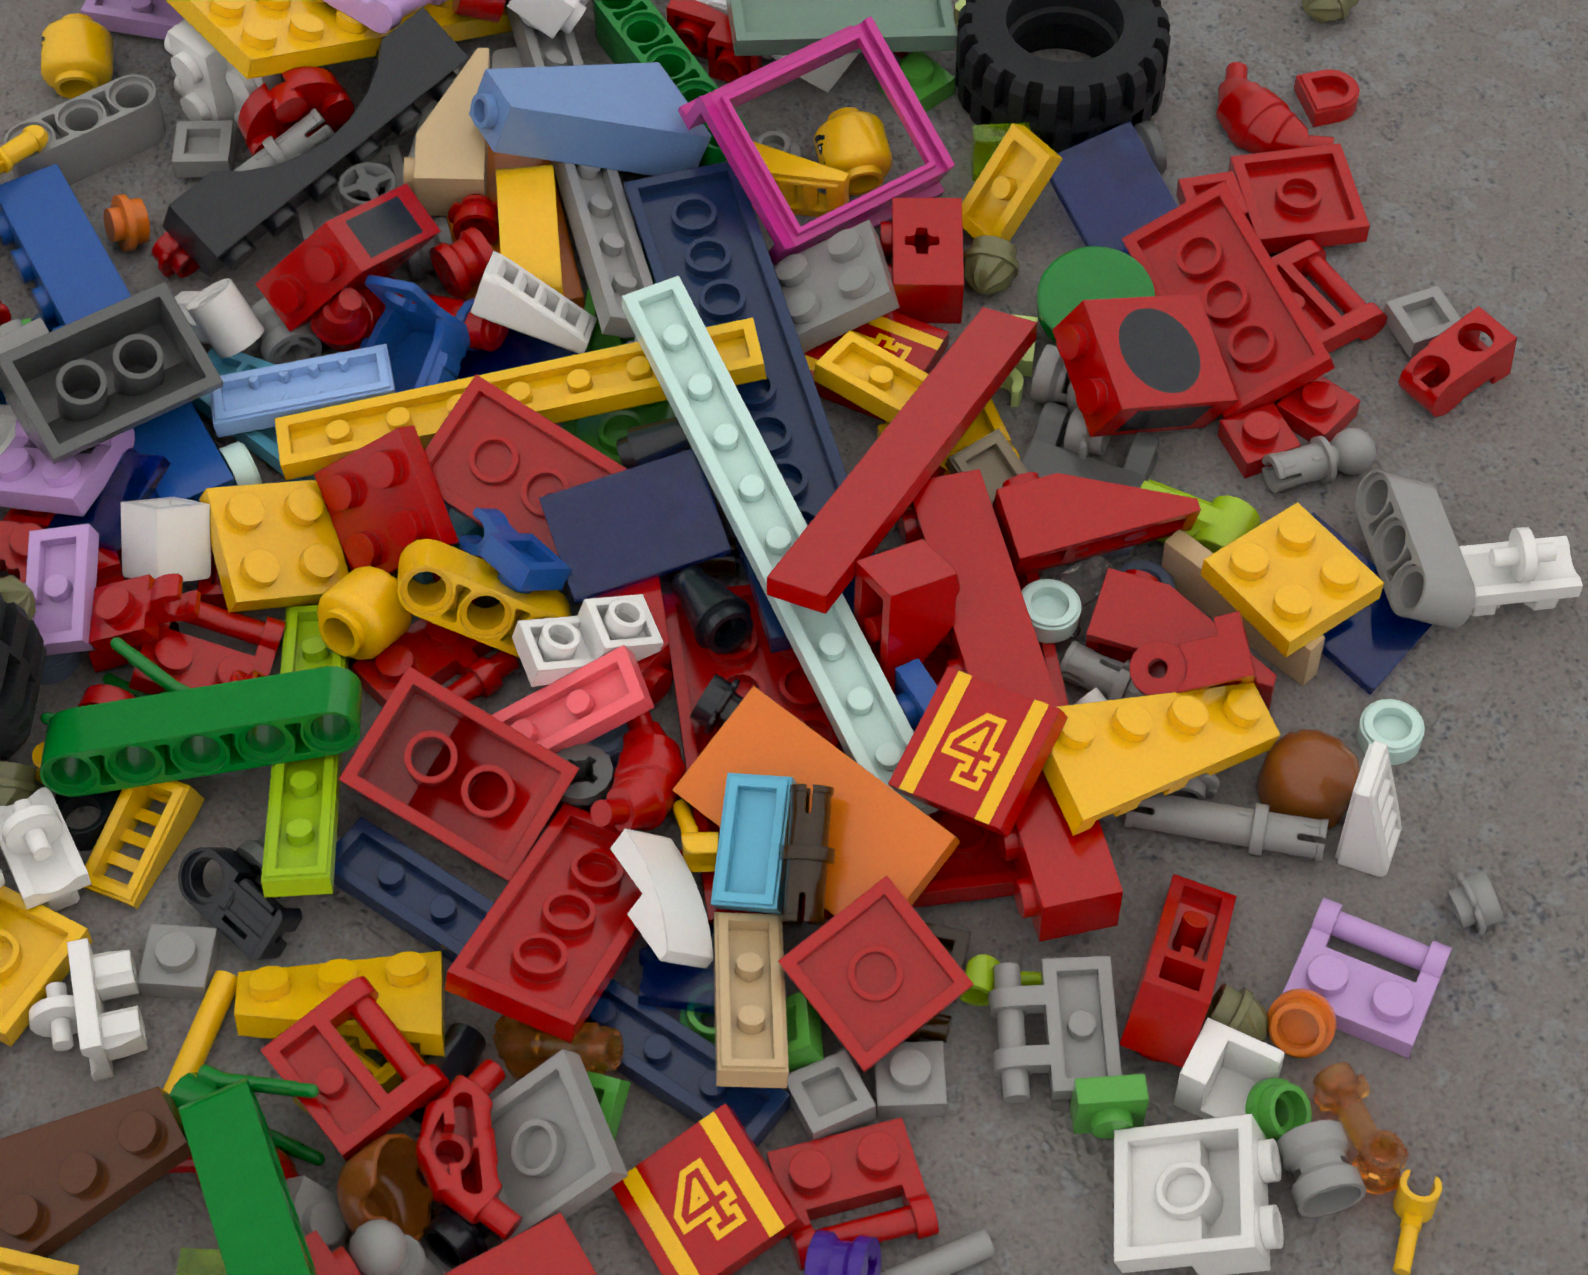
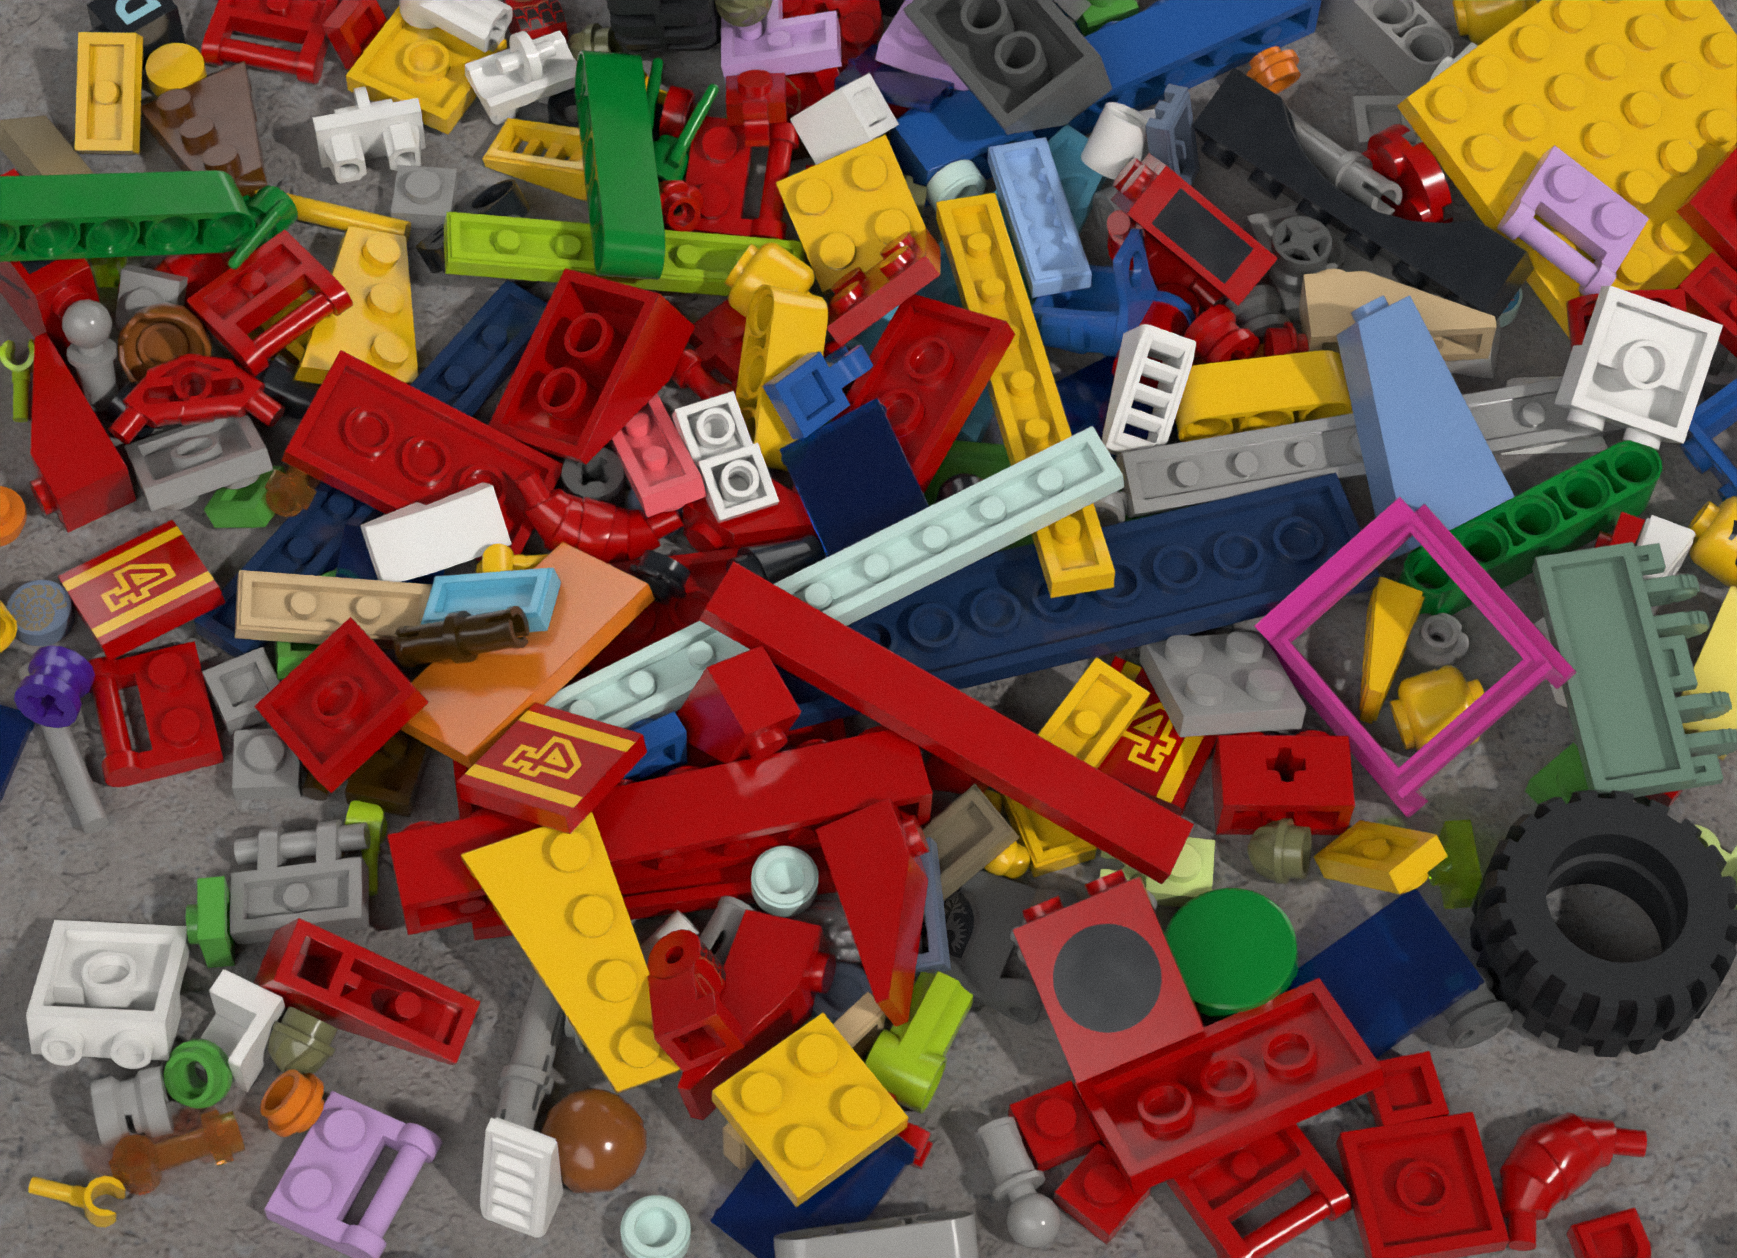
camera: 85 degrees right, 5 degrees up
(207, 263) = (1172, 134): none -> sand blue tile

